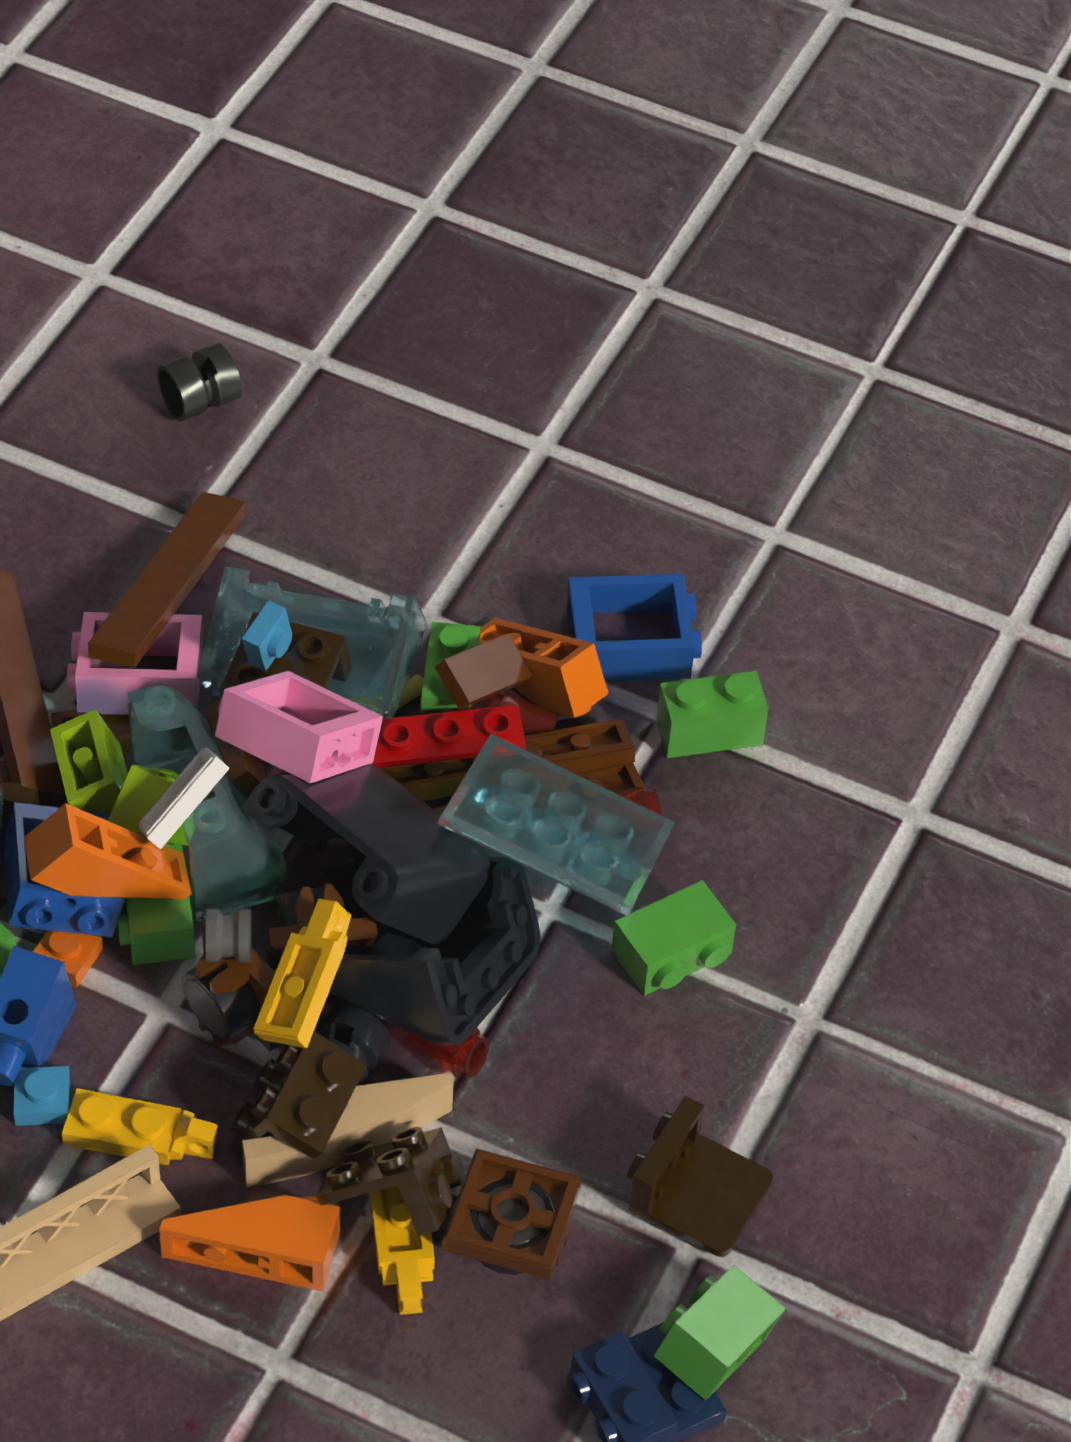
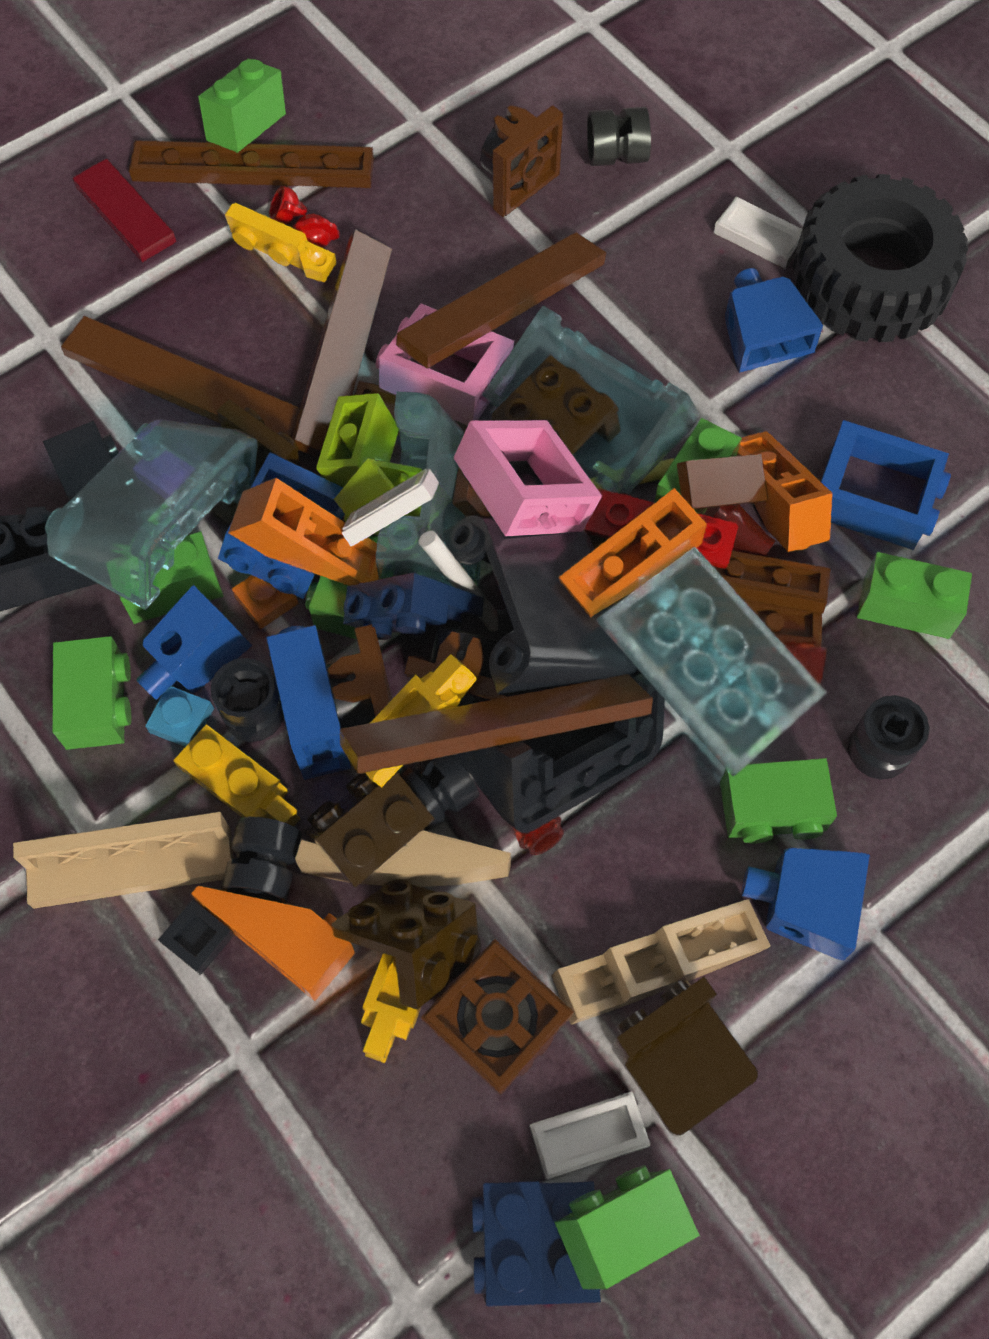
camera: 30 degrees right, 15 degrees up
(110, 432) = (522, 155): none -> reddish brown piece
(112, 1045) = (247, 699): none -> black wheel
(178, 1276) = (196, 937): none -> black plate
(181, 1019) = (307, 701): none -> blue window
(207, 1171) = (263, 853): none -> black wheel
(228, 935) = (361, 654): dark grey wheel -> none
(240, 879) = (408, 605): none -> dark blue plate
(268, 636) = (544, 382): dark azure plate -> none
(273, 846) = (457, 575): none -> white bar
(390, 942) = (493, 723): none -> reddish brown tile
(392, 430) = (759, 232): none -> white tile
(441, 755) = (635, 553): none -> orange slope
(446, 513) = (769, 321): none -> blue torso
(520, 457) = (885, 217): none -> black tyre
(628, 1121) = (660, 960): none -> tan slope
(646, 1288) = (589, 1135): none -> white tile
(748, 1008) = (813, 897): none -> blue torso
(749, 844) = (888, 737): none -> black wheel

